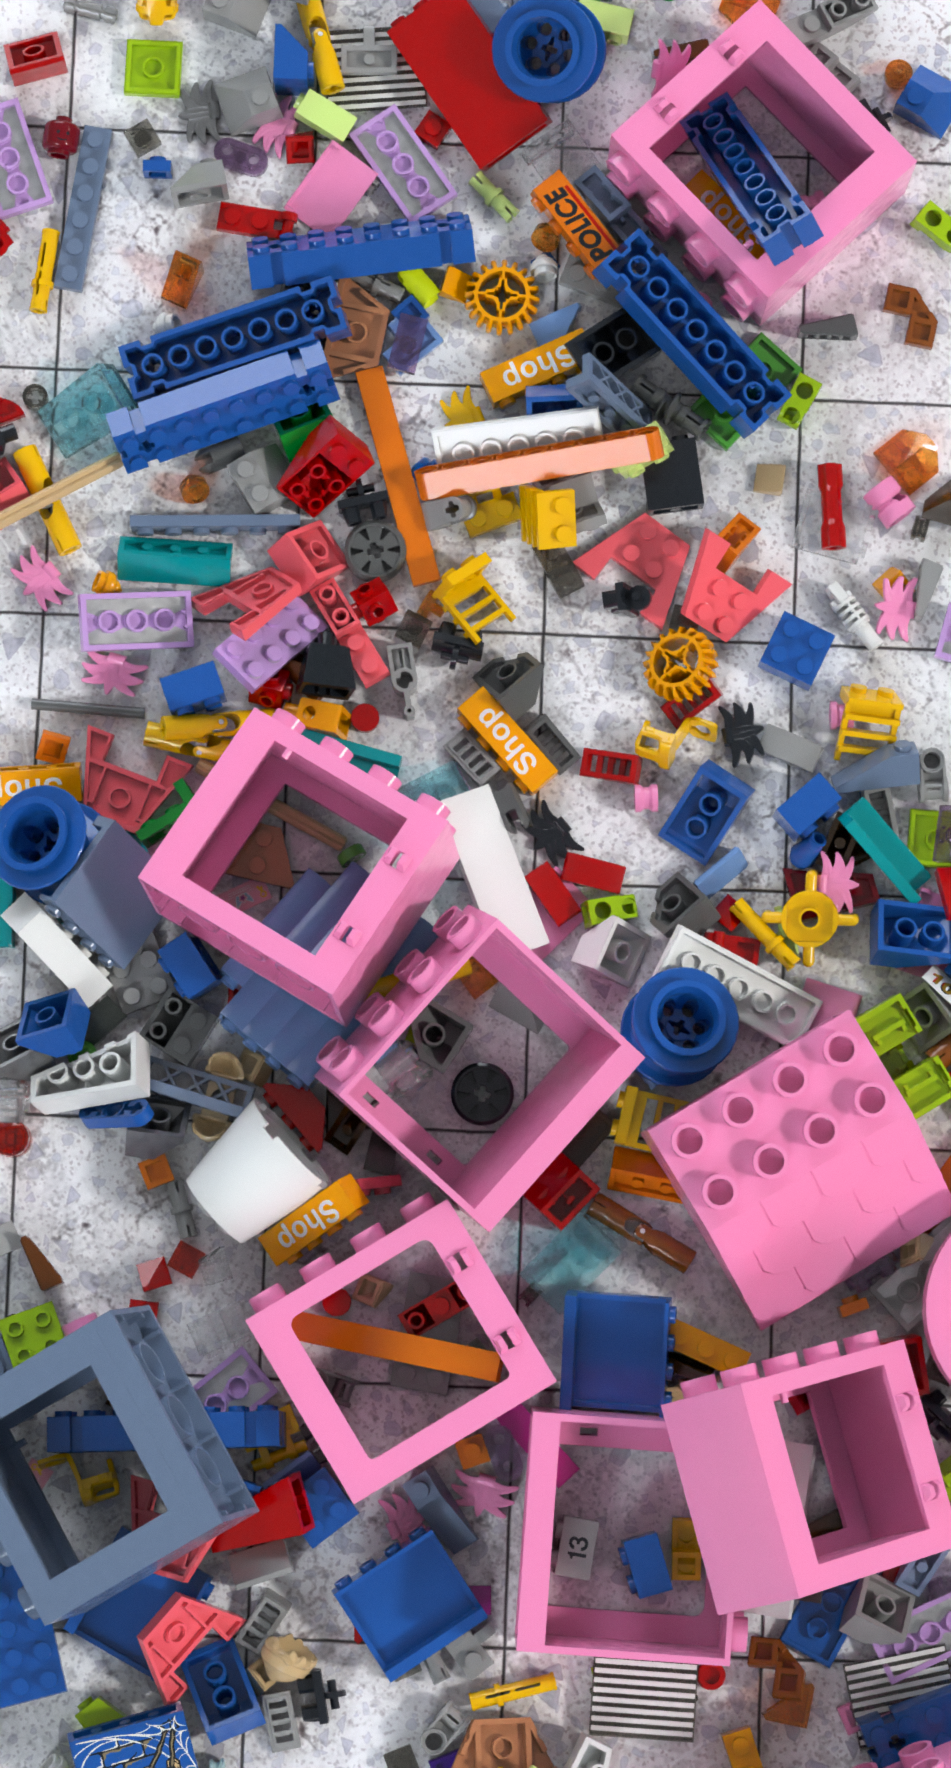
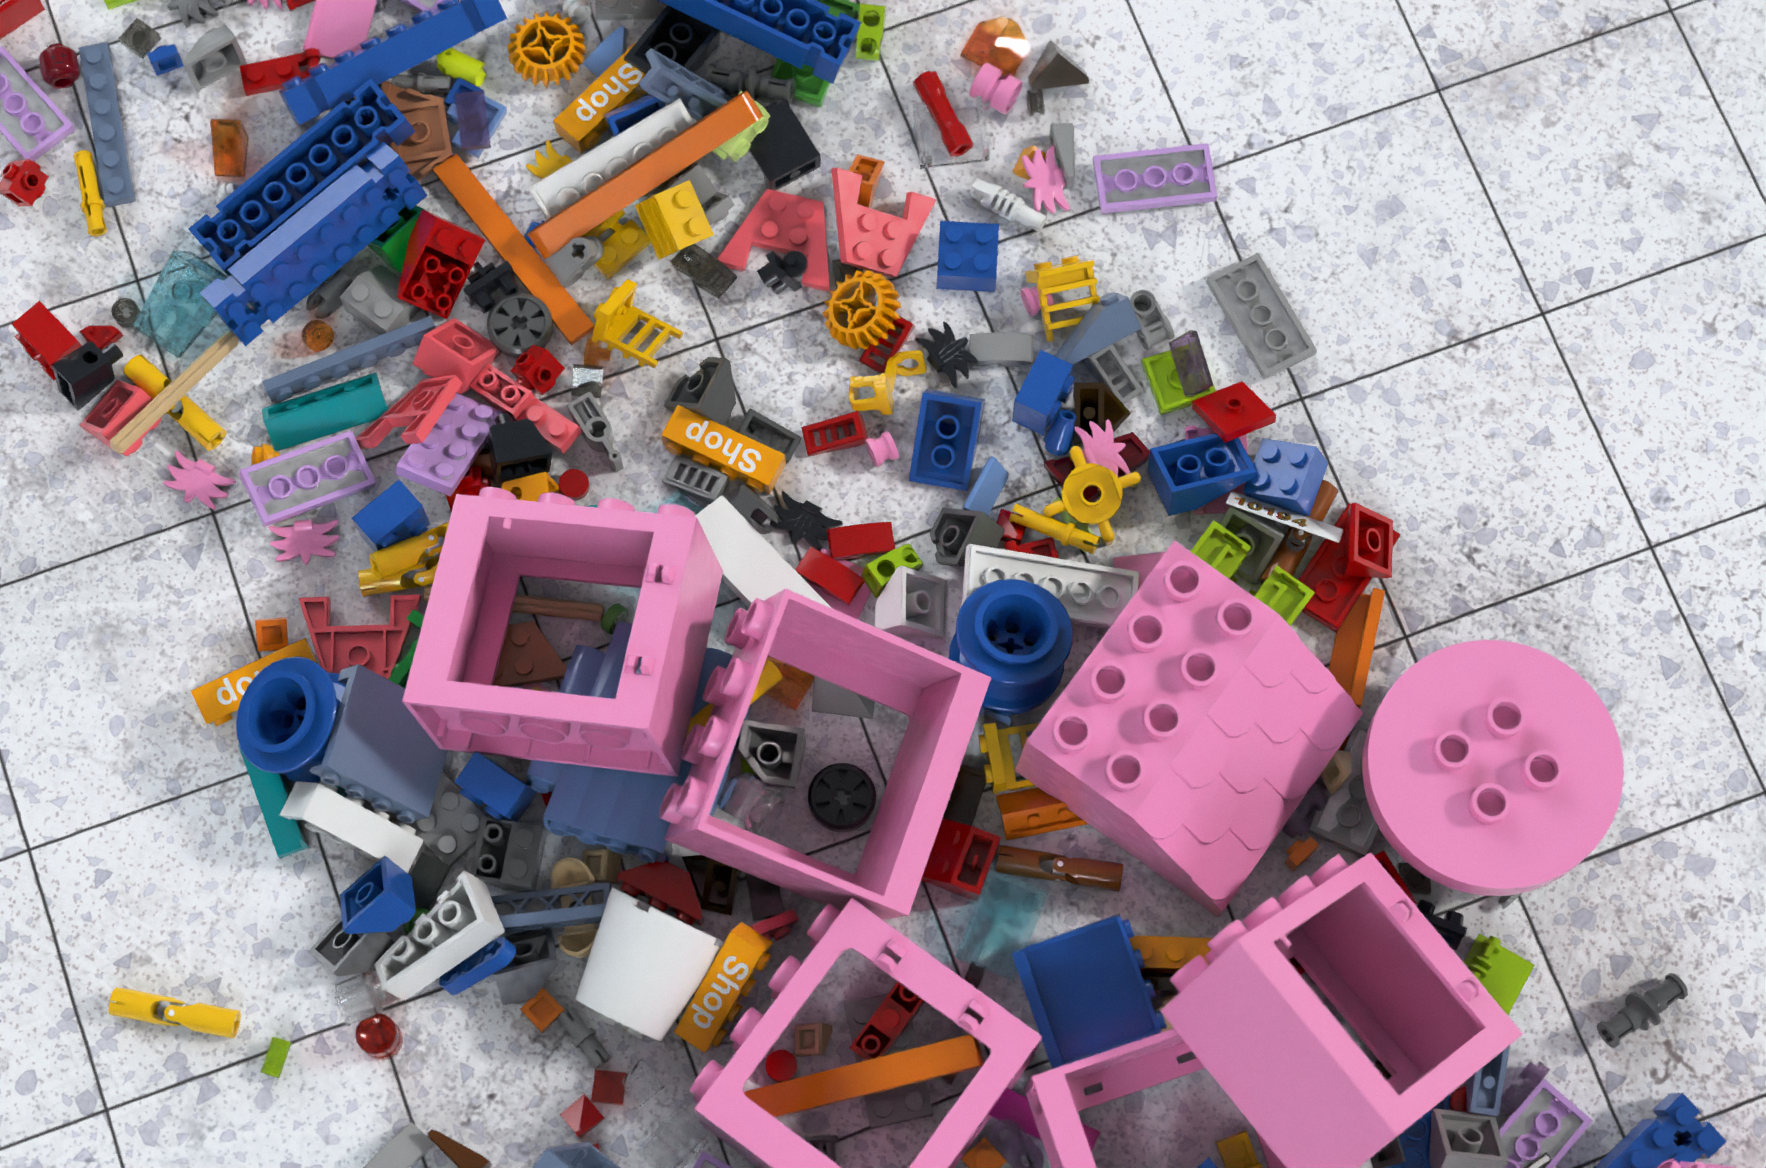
camera: 20 degrees left, 10 degrees down
(88, 708) = (292, 584): dark grey piece -> none
(239, 158) = (242, 22): clear purple plate -> none
(454, 284) = (496, 55): light orange slope -> none
(456, 648) = (635, 380): black hips -> none
(769, 479) = (873, 113): tan slope -> none
(885, 848) = (1134, 401): teal panel -> none

